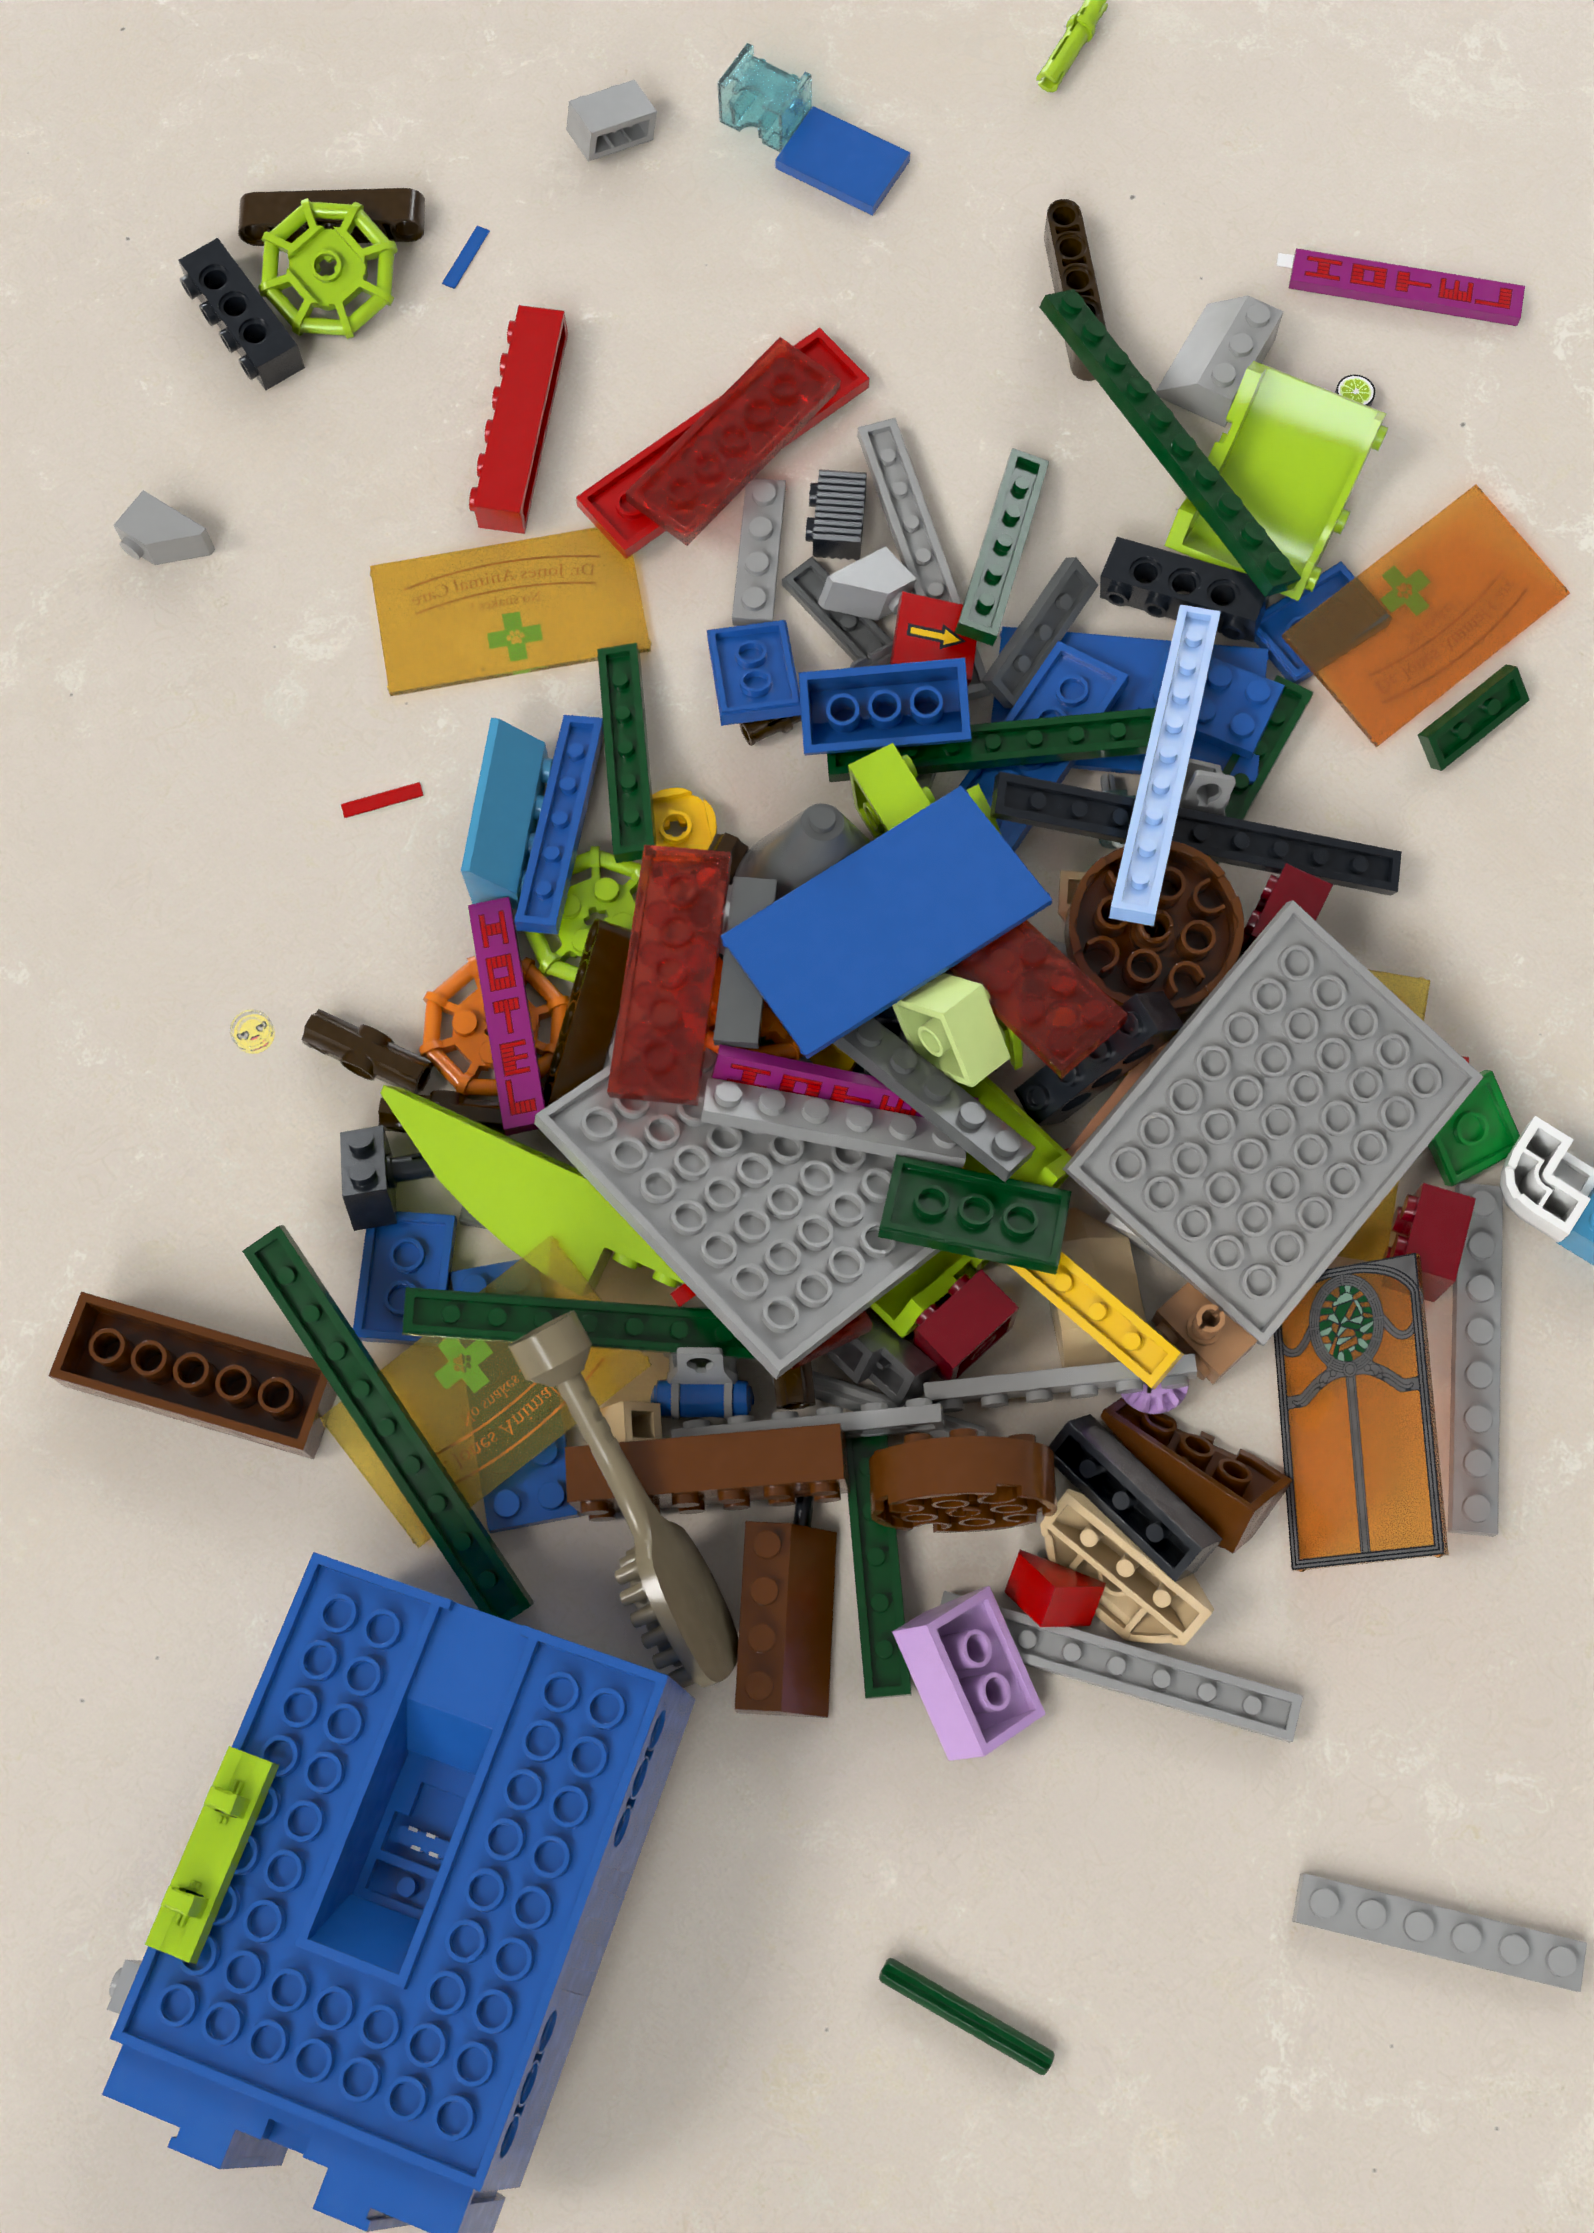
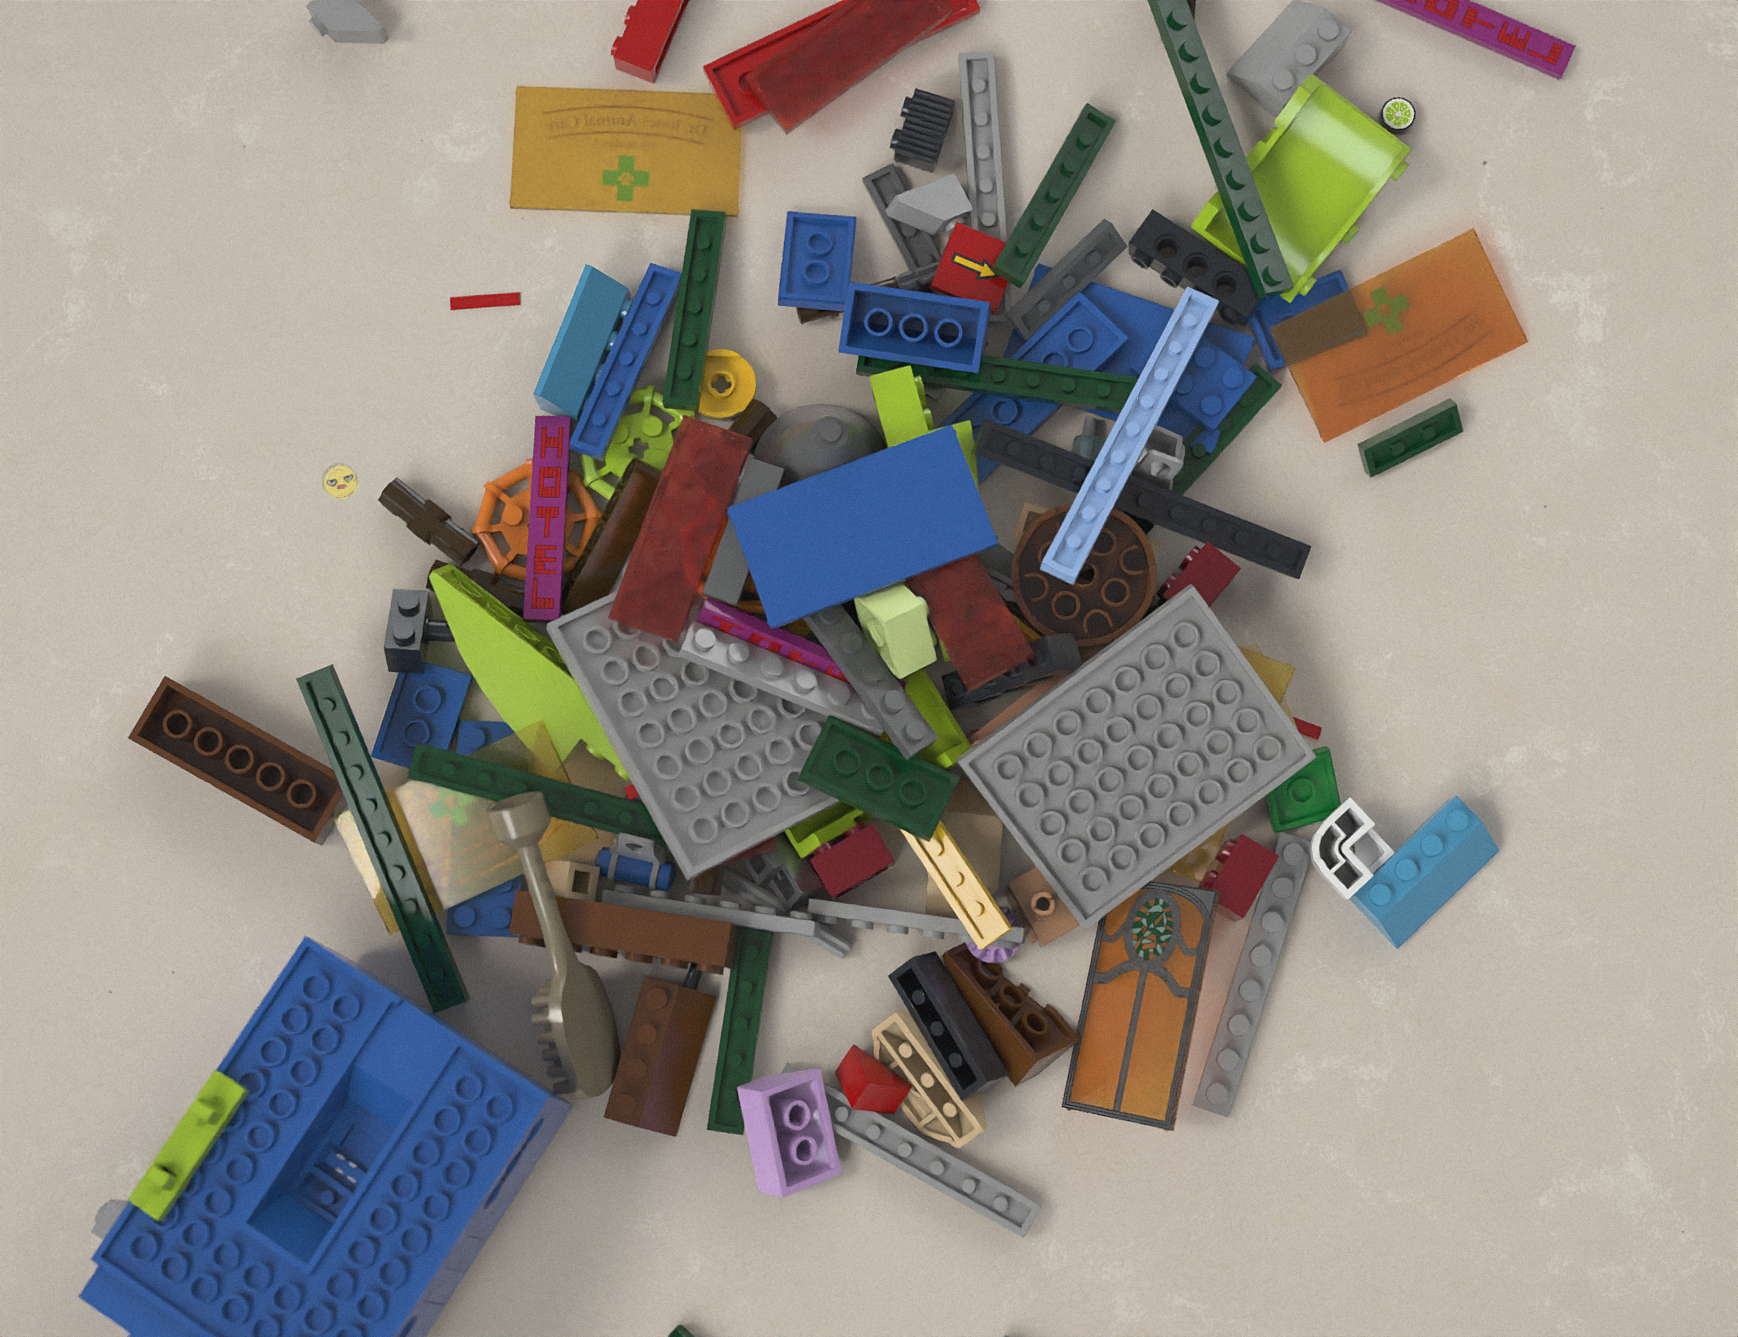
camera: 10 degrees right, 10 degrees up
(759, 552) = (848, 148): light grey plate -> none
(962, 1482) = (816, 987): reddish brown brick -> none

